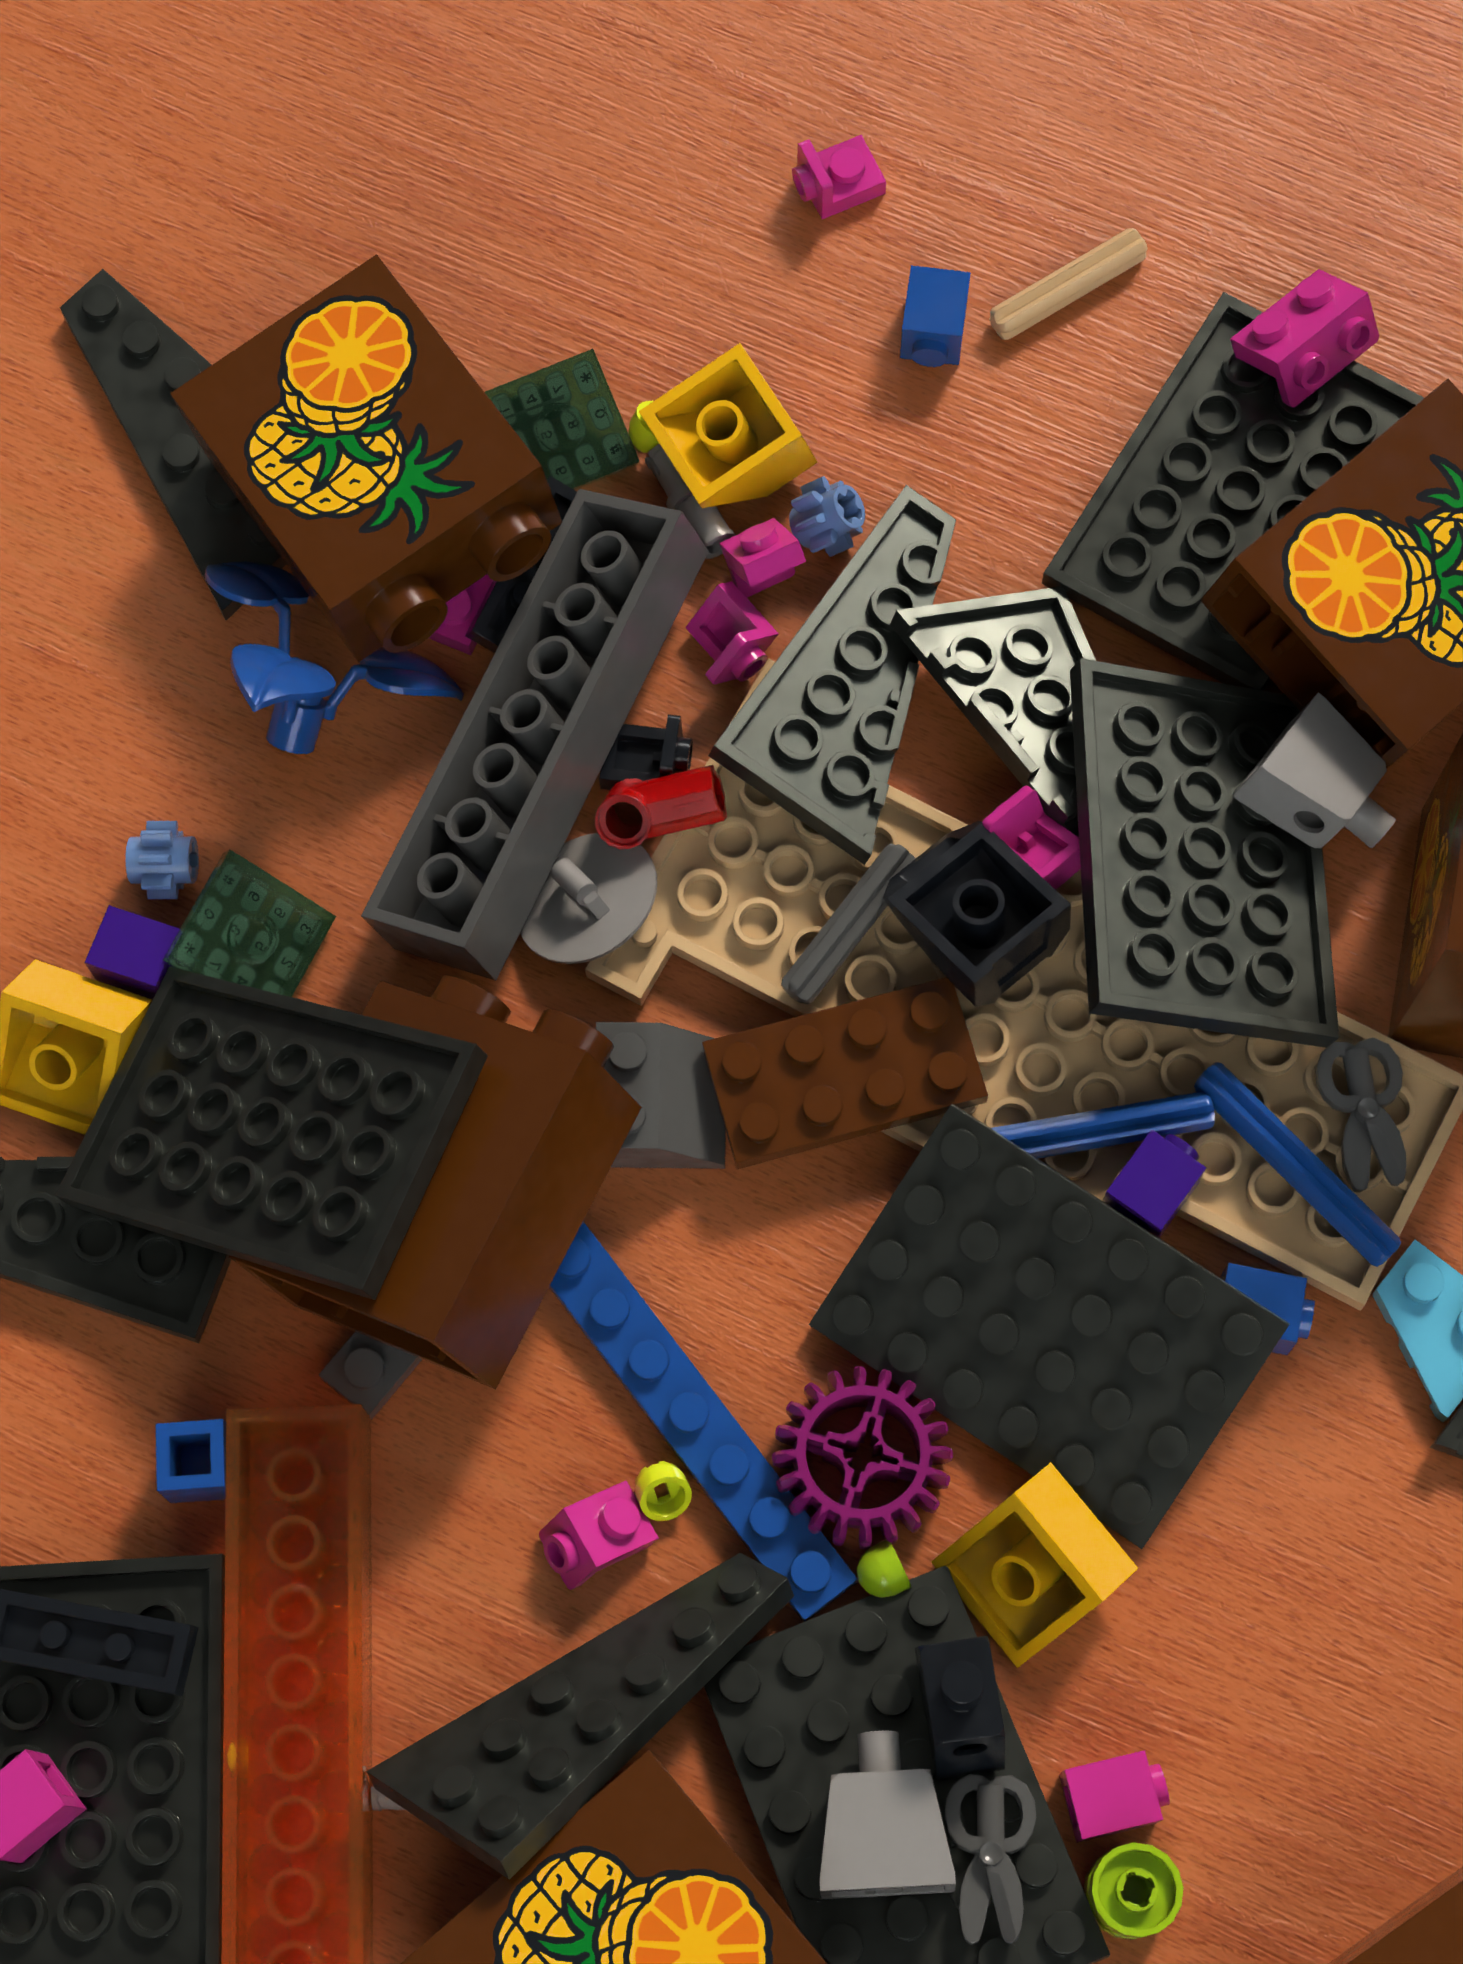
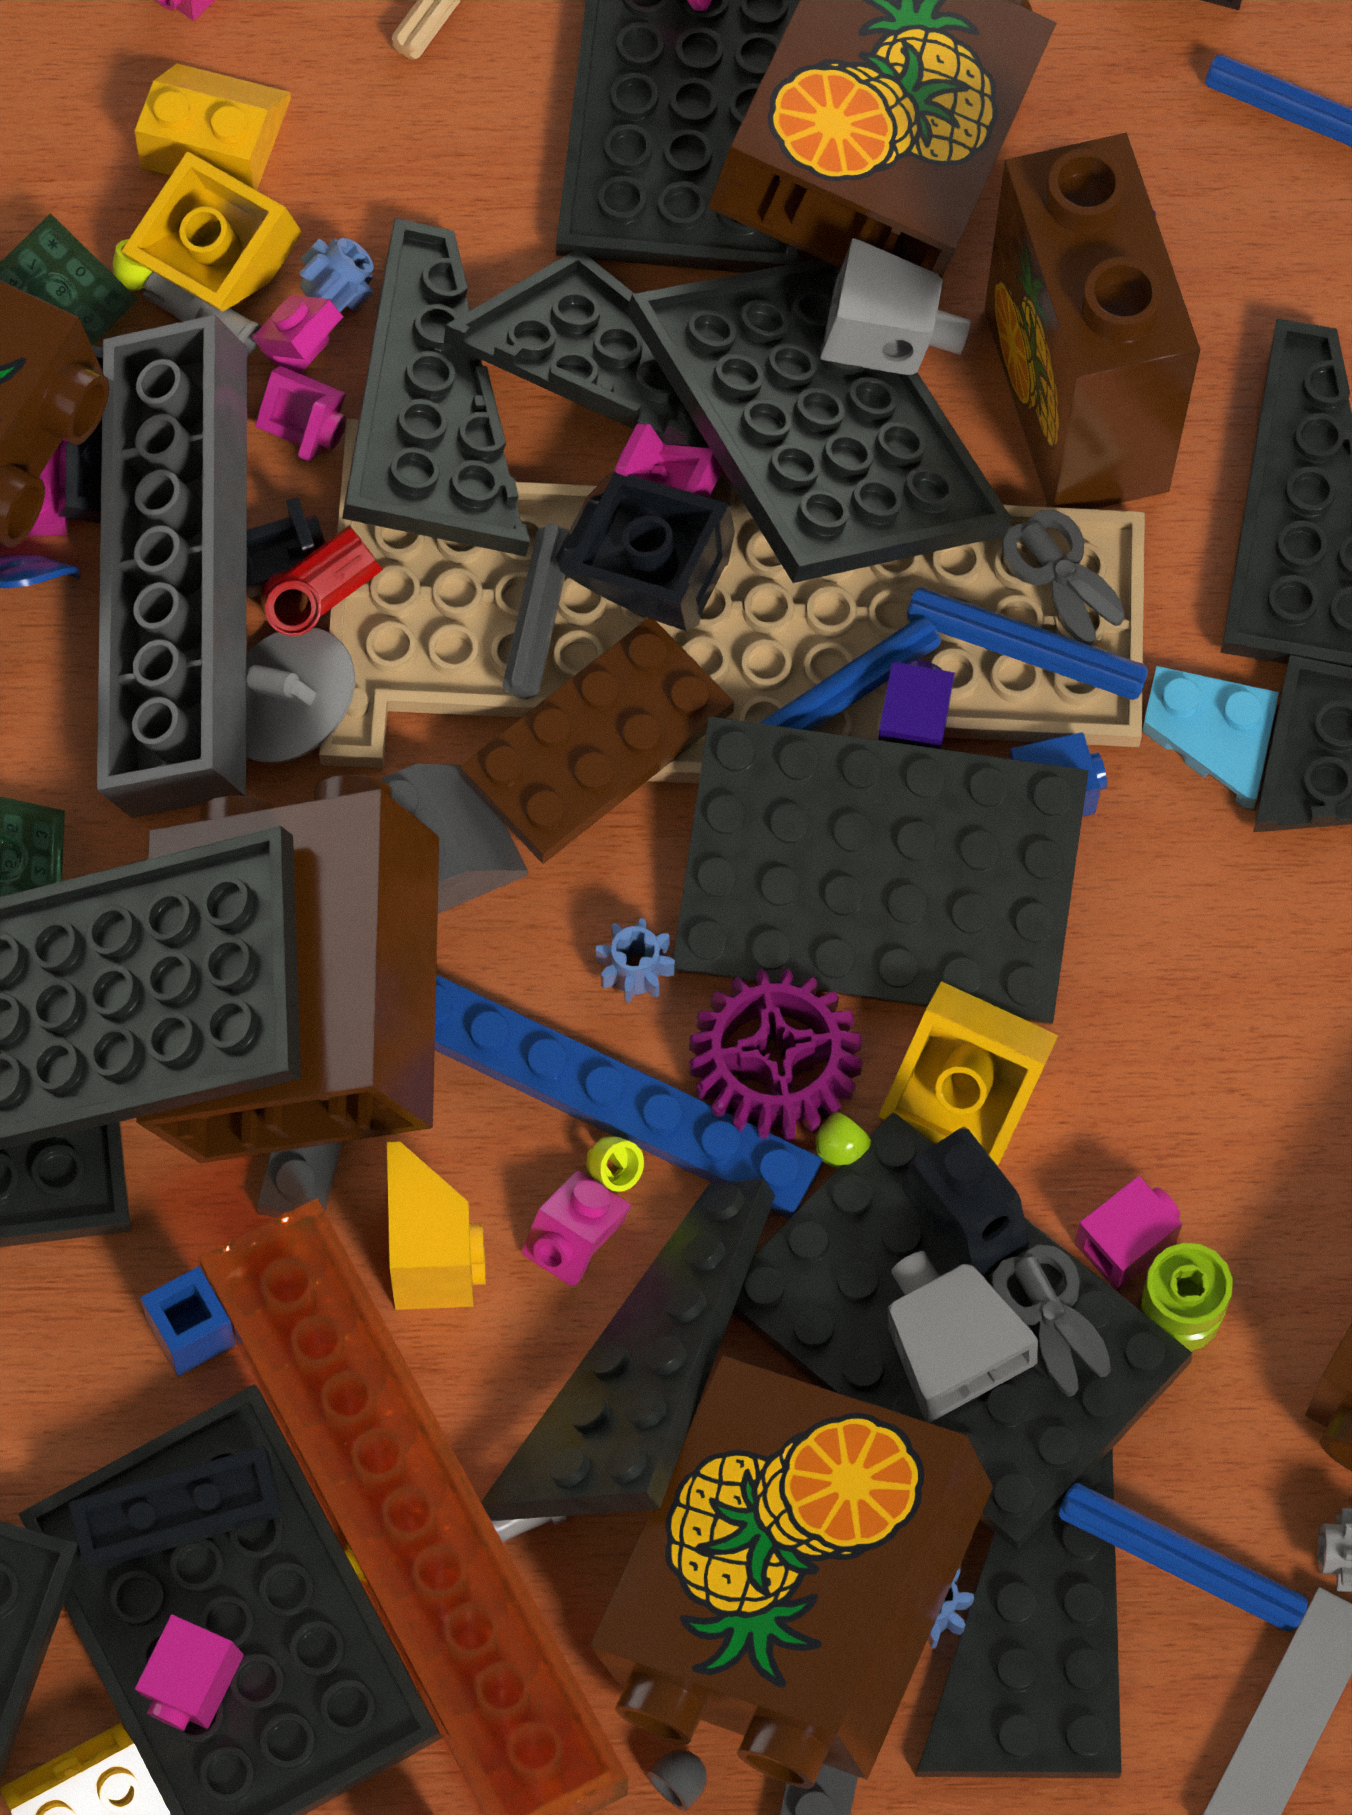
camera: 30 degrees left, 5 degrees down
(446, 1487) = (431, 1240): none -> yellow slope
(773, 1284) = (640, 978): none -> medium blue gear
(785, 323) = (213, 118): none -> yellow slope
(934, 316) = (344, 61): blue brick -> none

